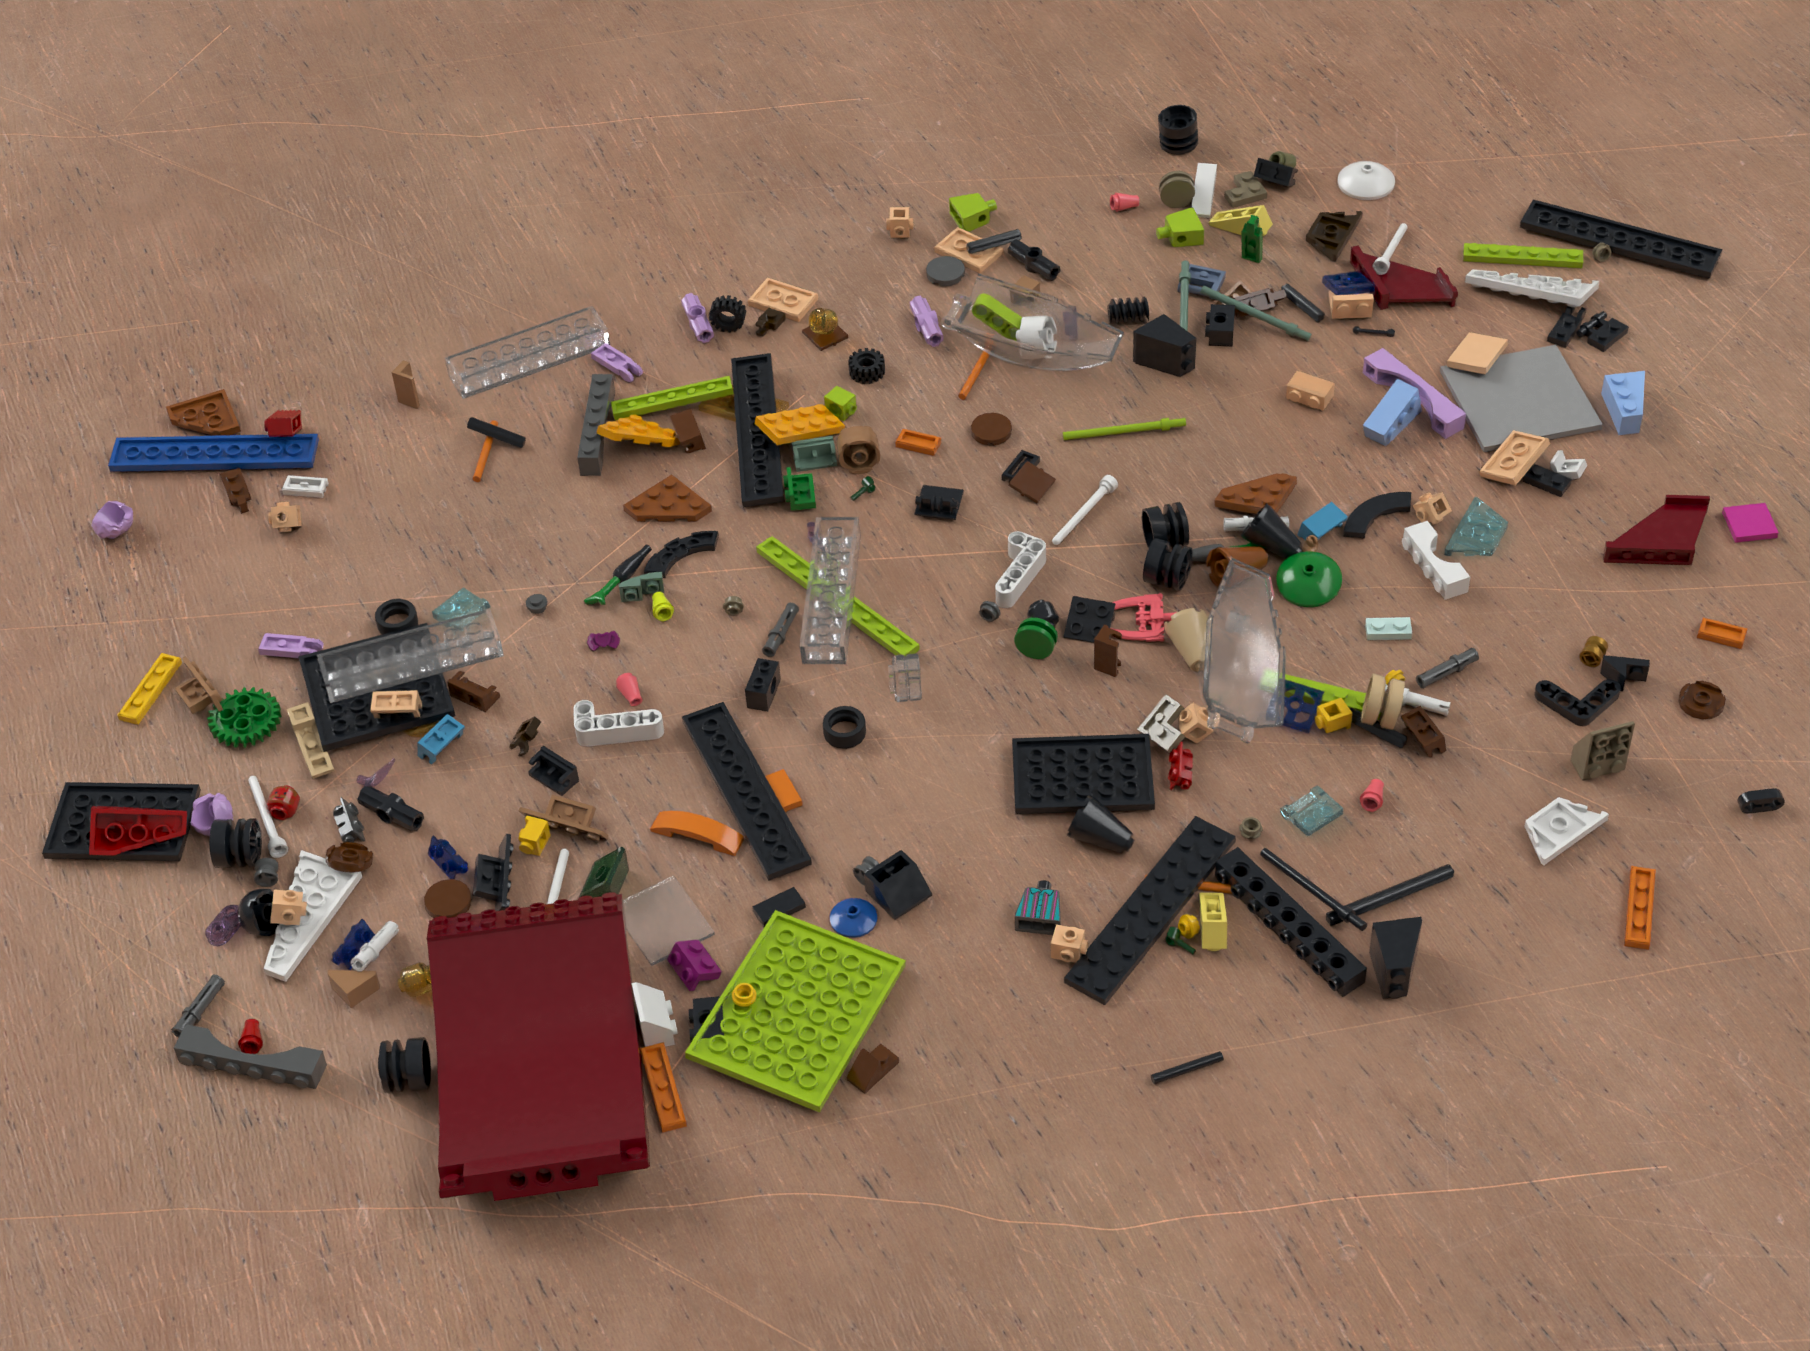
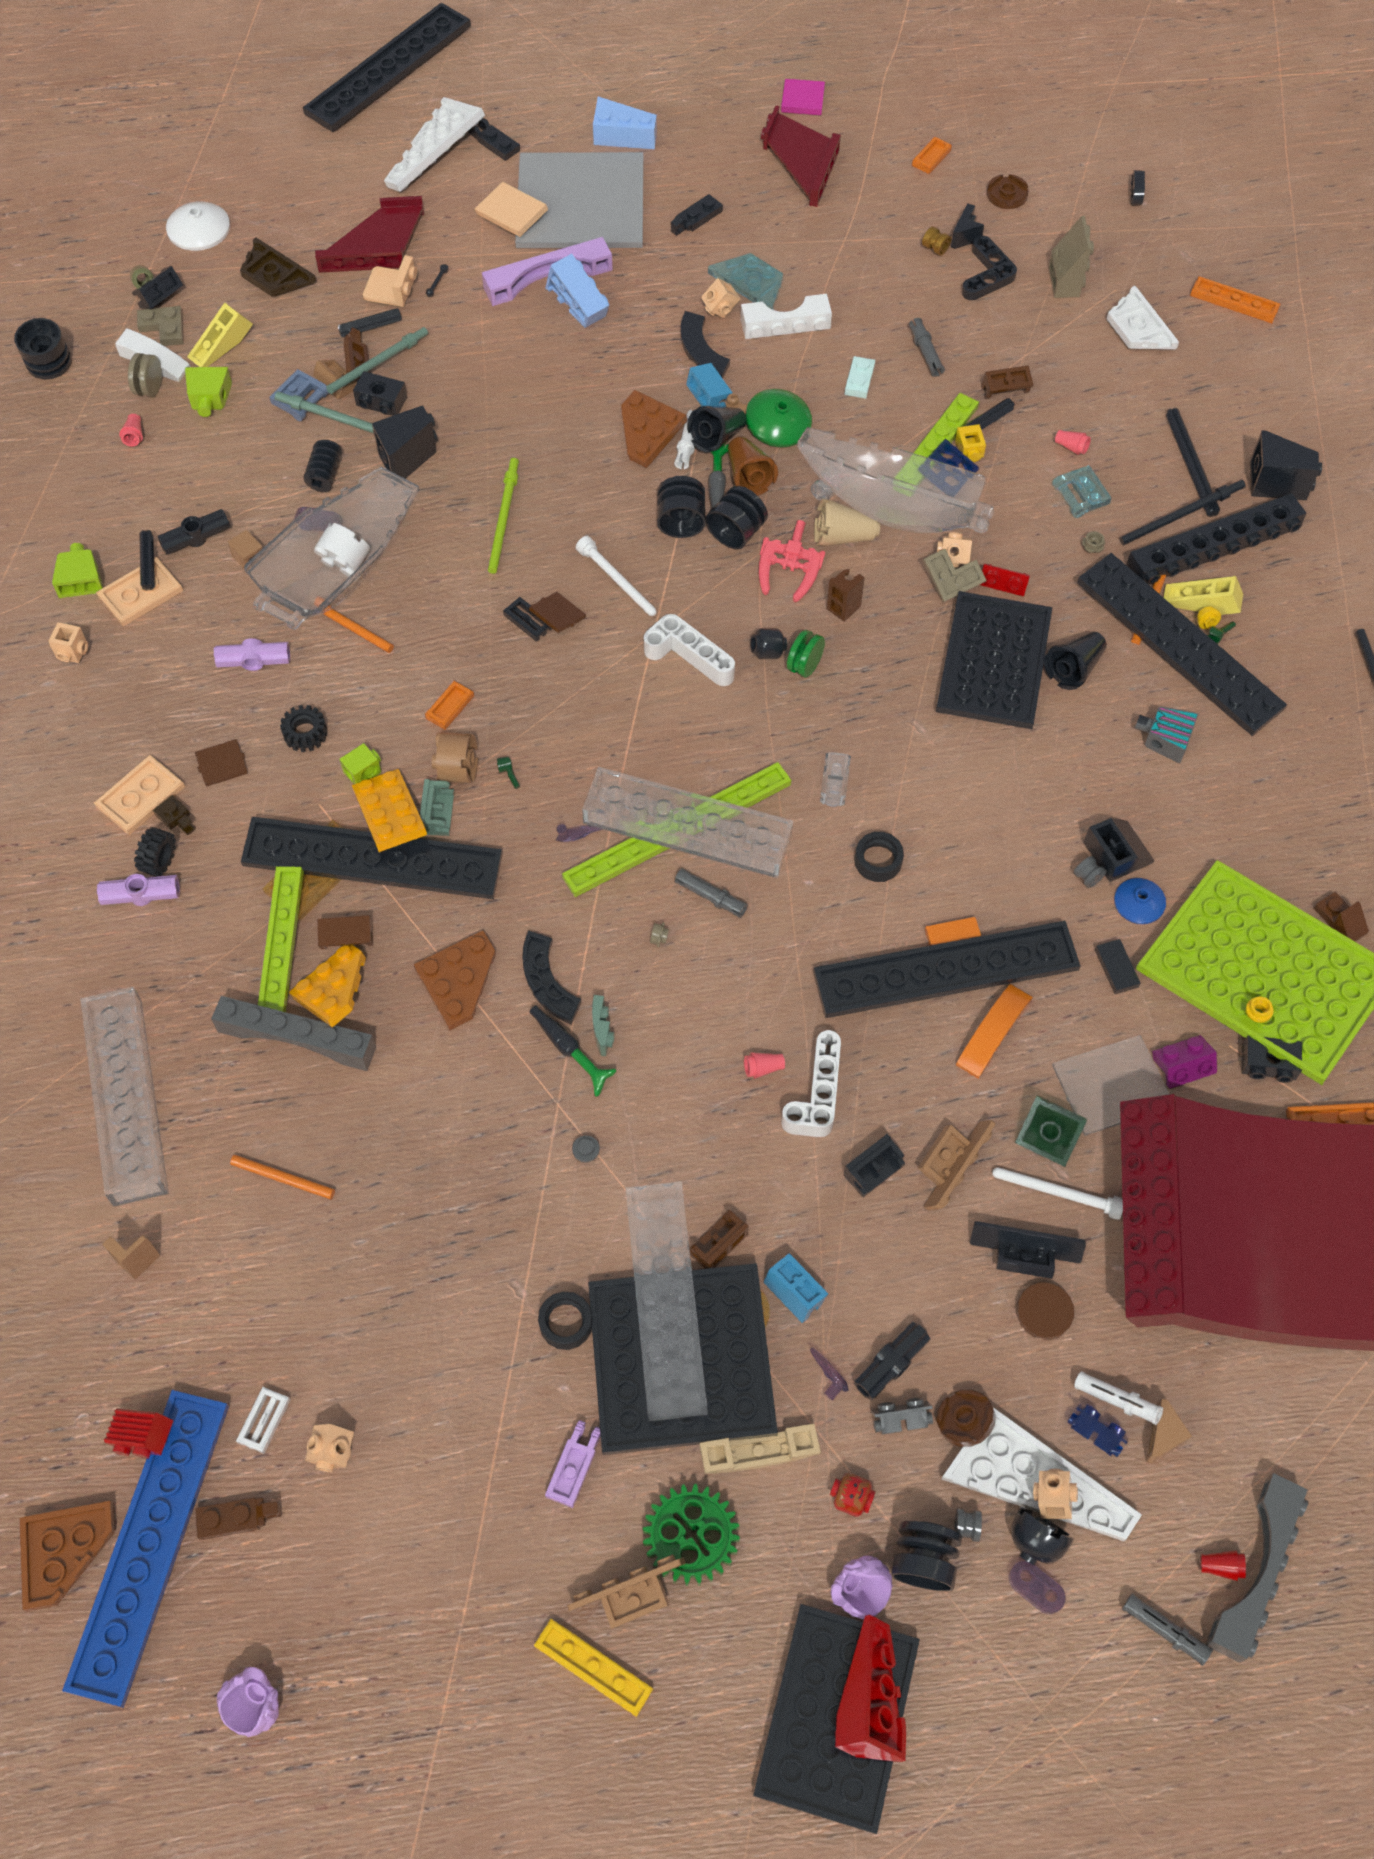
camera: 80 degrees left, 15 degrees up
(277, 845) = (920, 1509): white piece -> none
(395, 702) = (747, 1326): light nougat hinge -> none
(400, 1065) = (1306, 1378): black wheel -> none
(415, 979) = (1169, 1357): clear yellow head -> none
(445, 857) = (994, 1299): clear blue hinge -> none
(459, 605) = (562, 1247): clear light blue plate -> none
(496, 432) = (261, 1155): black axle -> none
(526, 732) = (805, 1187): dark brown plate -> none
(534, 836) = (973, 1200): yellow brick -> none
(603, 640) = (674, 1082): magenta piece -> none
(616, 362) = (179, 995): lavender hinge -> none
(654, 1015) = (1267, 1102): white slope -> none
(662, 607) = (638, 1009): neon yellow cone -> none
(762, 684) = (798, 922): black brick -> none
(800, 491) = (493, 832): green bracket -> none
(823, 321) = (215, 752): clear yellow head -> none
(938, 502) = (557, 703): black hinge -> none
(945, 270) = (167, 620): dark grey tile -> none
(989, 611) = (744, 689): dark grey plate -> none
(990, 313) = (302, 574): lime beam -> none
(991, 428) = (455, 632): reddish brown tile -> none
(1068, 943) = (1221, 716): light nougat brick -> none
(1087, 618) = (783, 606): black hinge -> none
(1252, 240) = (271, 329): green hinge -> none
(1310, 390) = (511, 348): light nougat brick -> none
(1350, 280) = (353, 271): clear blue piece -> none
(1382, 263) = (352, 239): white piece -> none
(1386, 702) = (984, 393): tan wheel -> none
(1394, 674) = (933, 387): yellow plate -> none
(1426, 702) = (958, 383): white pin -> none
(1514, 457) = (671, 222): light nougat tile -> none
(1522, 255) = (375, 142): lime plate -> none
(1570, 468) = (694, 190): white bracket -> none
(1601, 252) = (401, 84): dark tan plate -> none
(1607, 334) = (516, 114): black plate -> none

